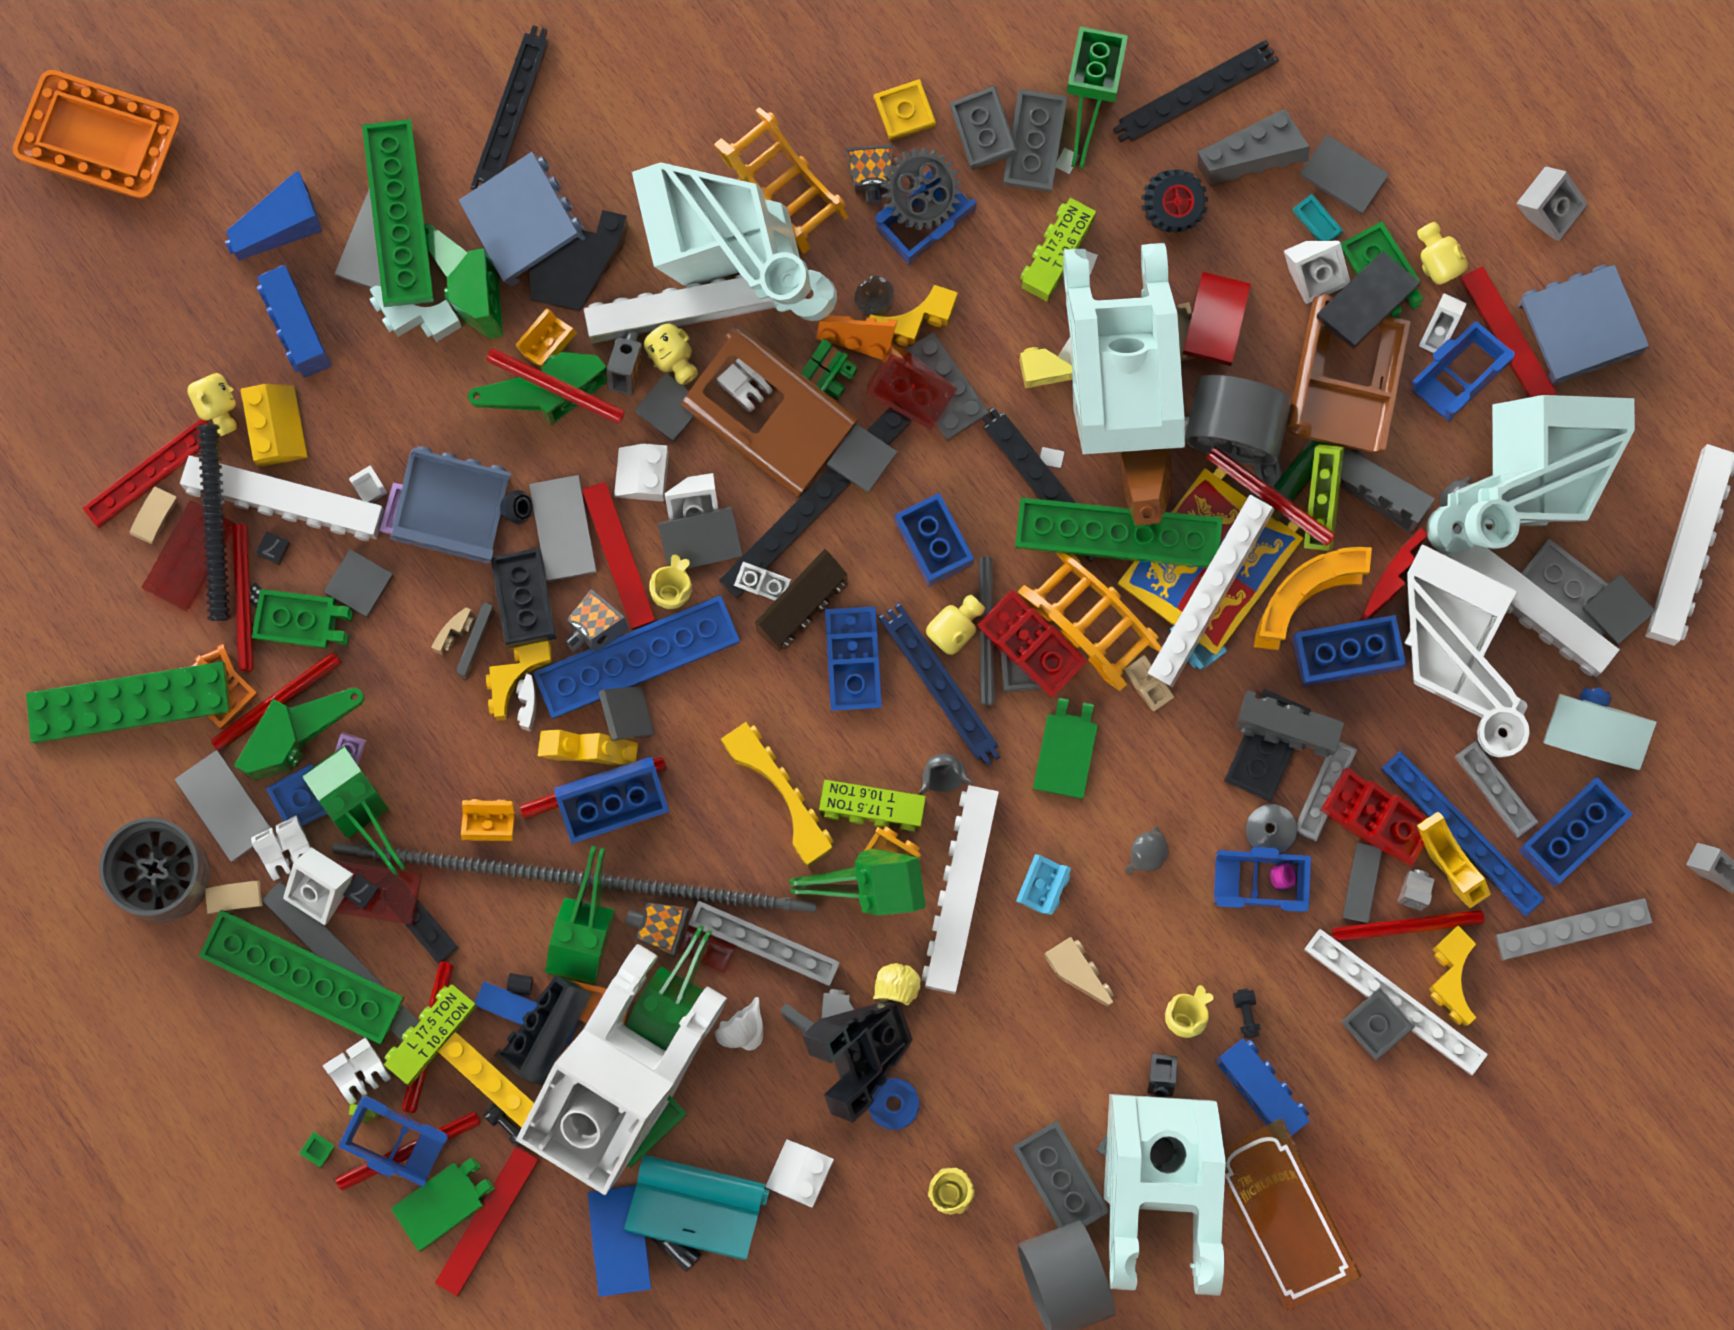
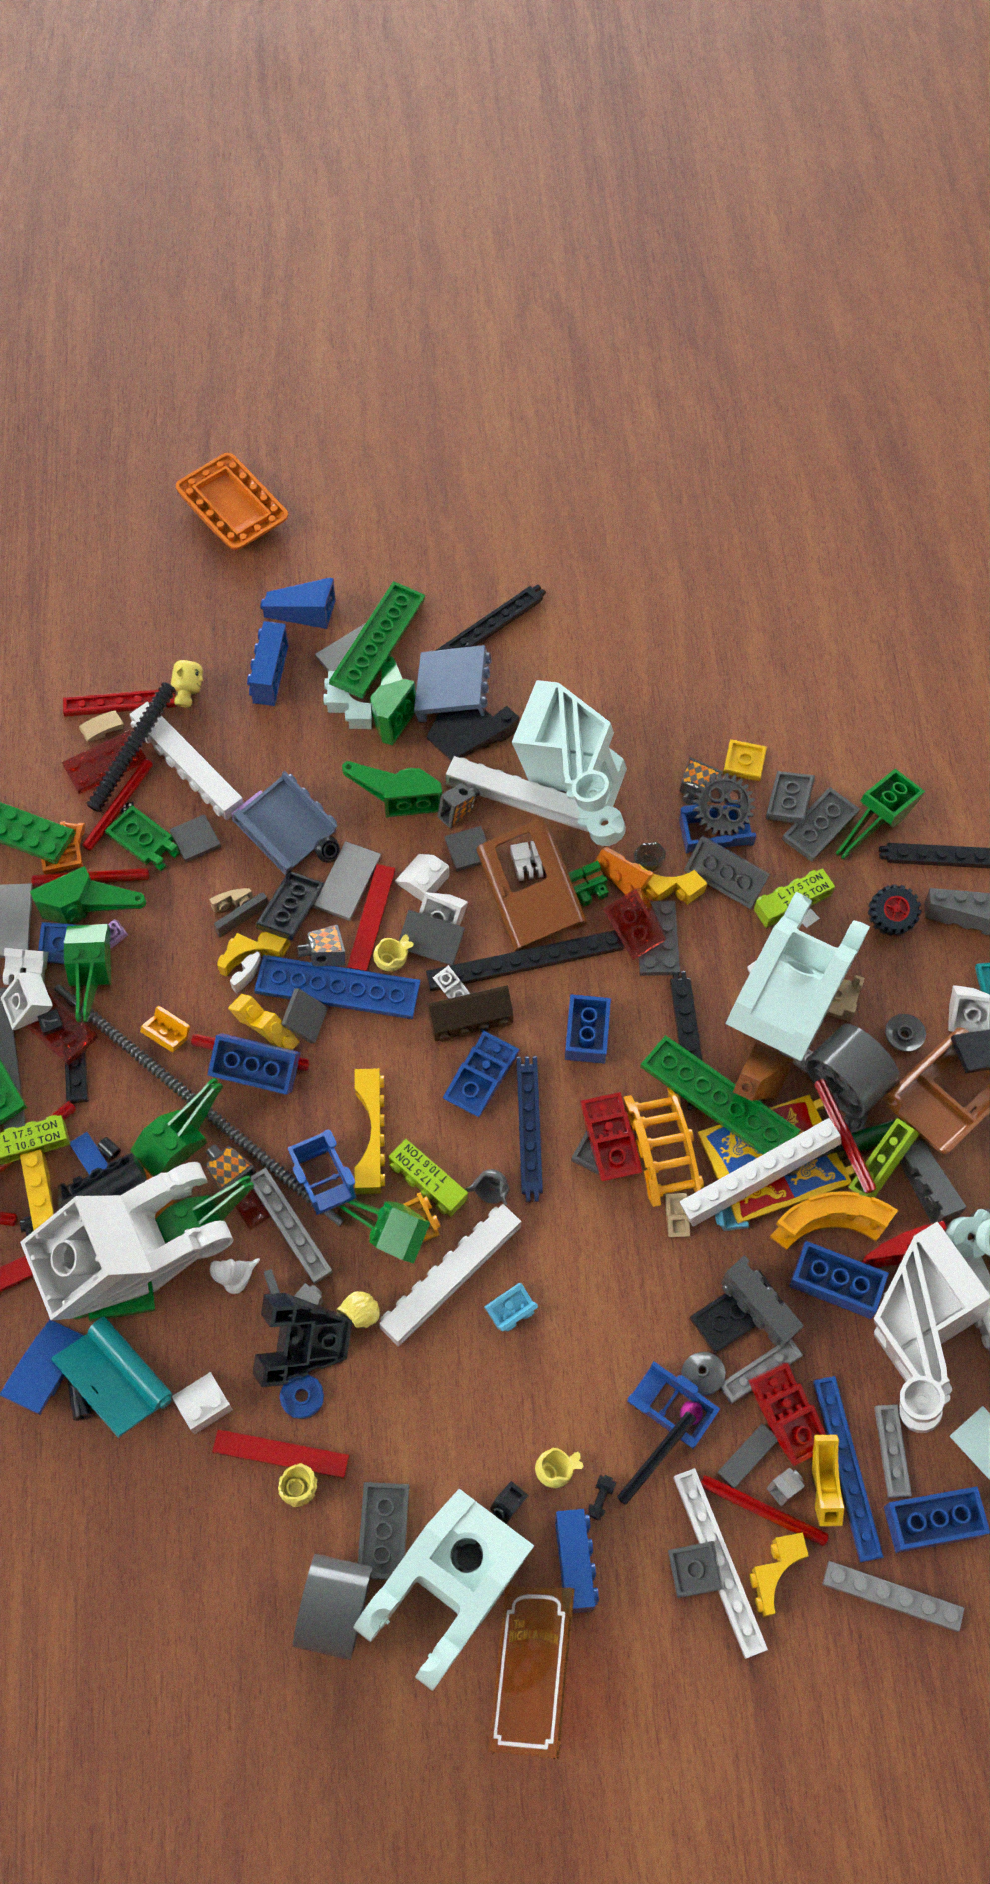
camera: 30 degrees right, 15 degrees down
(272, 548) = (158, 787): black tile -> none
(273, 424) = (213, 715): yellow slope -> none
(368, 485) = (244, 782): white panel -> none
(545, 338) = (418, 757): light orange bracket -> none
(555, 386) = (400, 784): red axle -> none
(671, 351) = (492, 813): light yellow piece -> none
(731, 154) = (625, 791): light orange fence -> none
(793, 886) = (315, 1147): none -> blue piece
(862, 458) = (573, 949): dark grey tile -> none
(911, 1171) = (280, 1453): none -> red tile
(953, 626) = (564, 1094): light yellow piece -> none
(970, 264) = (727, 872): none -> dark grey plate
(986, 644) = (578, 1122): dark grey axle -> none
(1043, 367) = (734, 964): light yellow slope -> none
(1052, 457) = (705, 1027): white sticker -> none
(1065, 161) = (832, 849): white sticker -> none
(1066, 752) = (588, 1226): green tile -> none
(1071, 967) = (493, 1381): tan slope -> none
(1148, 852) = (601, 1331): dark grey hair -> none
(1216, 318) = (877, 1001): red slope -> none
(1264, 324) = (908, 1025): none -> dark grey dish
(1278, 943) = (656, 1458): none -> black axle

